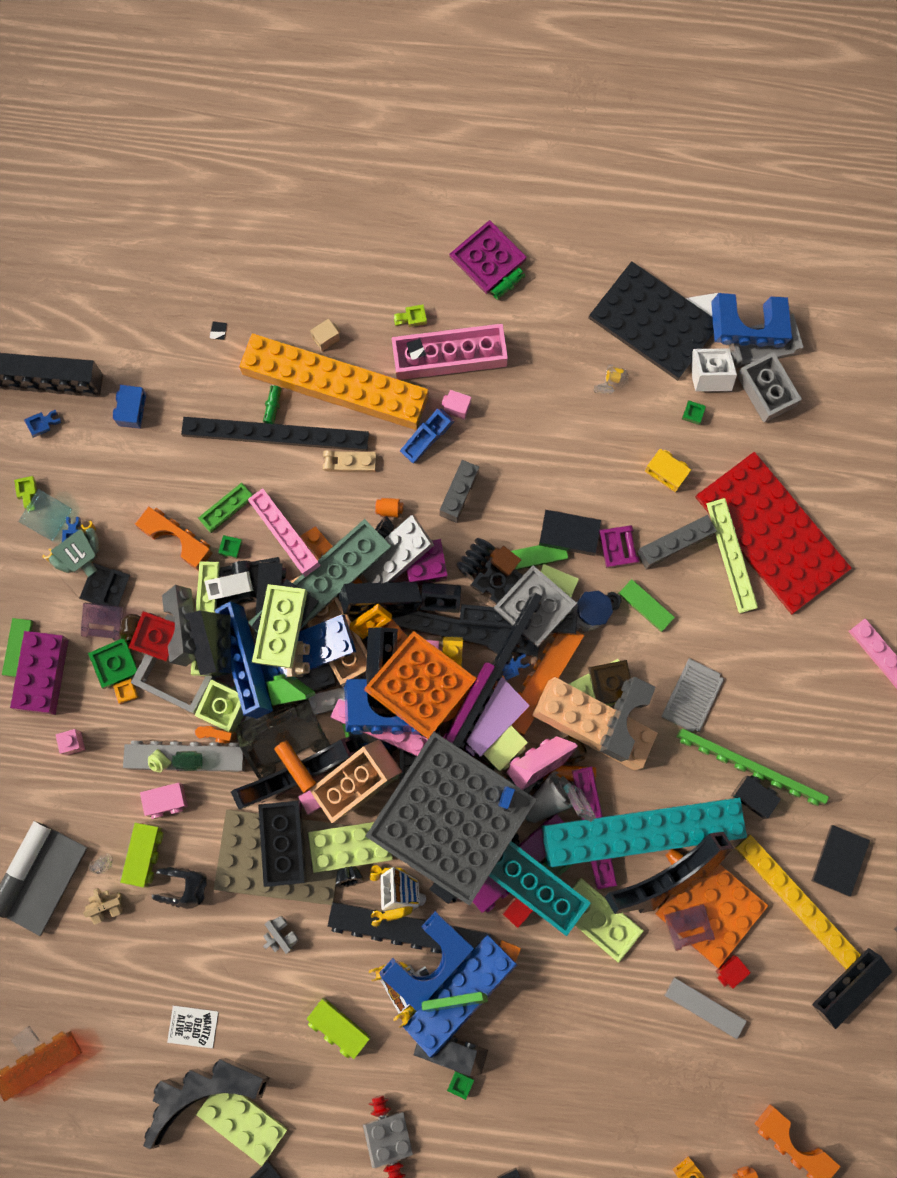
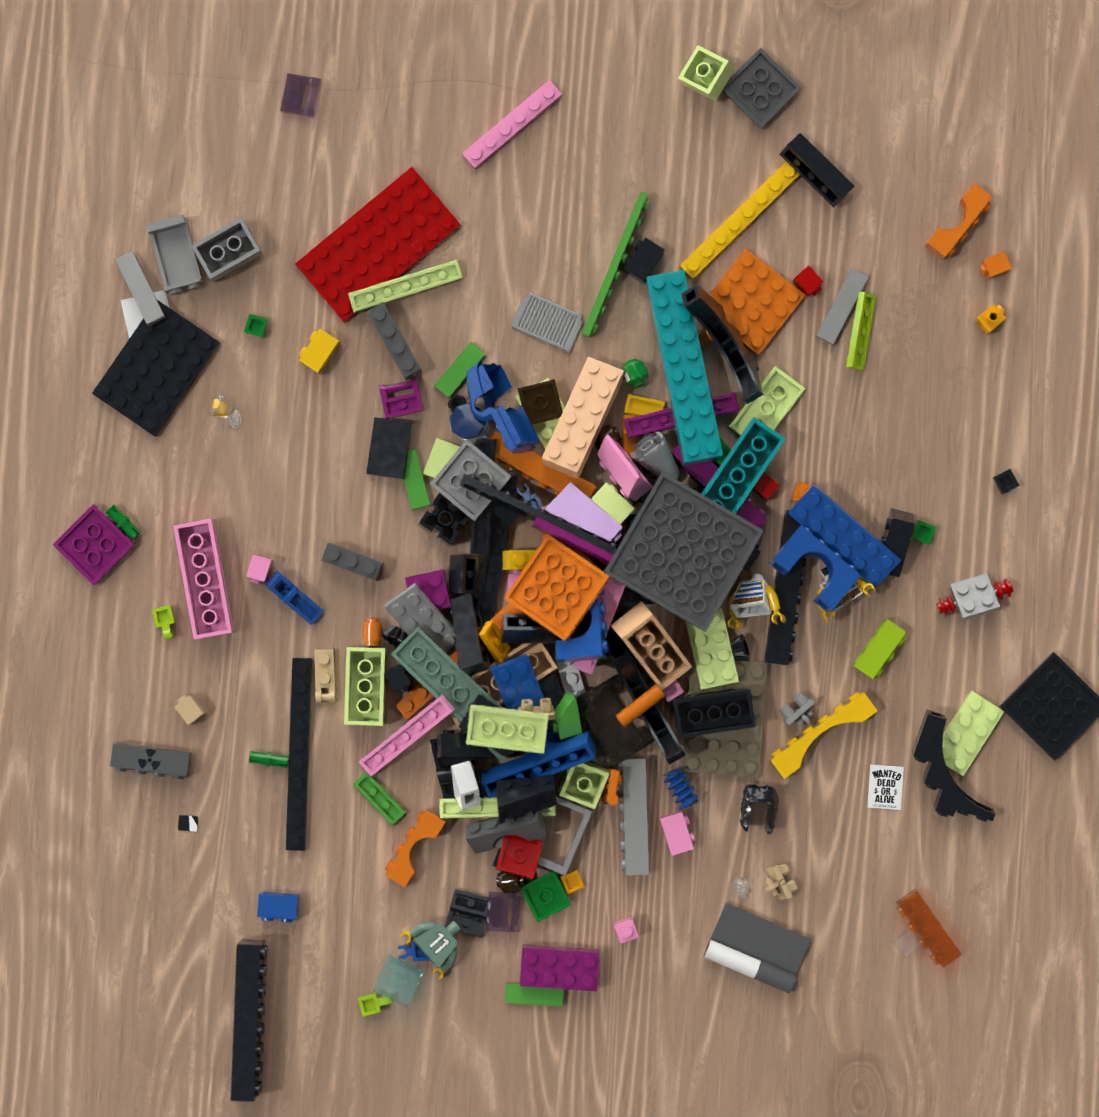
camera: 90 degrees left, 10 degrees up
(39, 424) = (301, 998): blue plate -> none
(142, 855) = (730, 849): lime brick -> none
(158, 761) = (641, 840): yellowish green plate -> none
(187, 761) = (640, 811): clear green brick -> none
(210, 806) = (681, 787): none -> blue piece
(230, 547) = (421, 790): green plate -> none
(231, 924) = (790, 758): none -> yellow arch
(280, 298) = (151, 760): none -> dark grey brick
(334, 381) = (241, 697): light orange brick -> none
(335, 497) = (365, 686): none -> yellowish green brick
(339, 526) = (399, 679): none -> black brick
(416, 349) = (205, 613): black sticker -> none
(455, 1001) = (850, 540): bright green tile -> none
(475, 557) = (420, 542): black piece -> none
(504, 560) = (426, 512): reddish brown brick -> none
(506, 797) = (663, 500): blue tile -> none
(579, 802) = (660, 430): clear tile -> none
(588, 652) = (490, 383): none -> blue piece
(605, 786) = (641, 405): none -> yellow tile
(617, 741) = (601, 395): dark grey arch -> none
(639, 781) = (635, 373): none -> green head
(678, 1027) = (861, 331): none -> lime plate
(686, 920) = (763, 324): plate -> none
(713, 370) = (209, 306): white slope -> none
(730, 329) = (169, 290): blue arch -> none
(745, 303) = (140, 288): none -> light grey tile
(840, 860) = (699, 179): black tile -> none

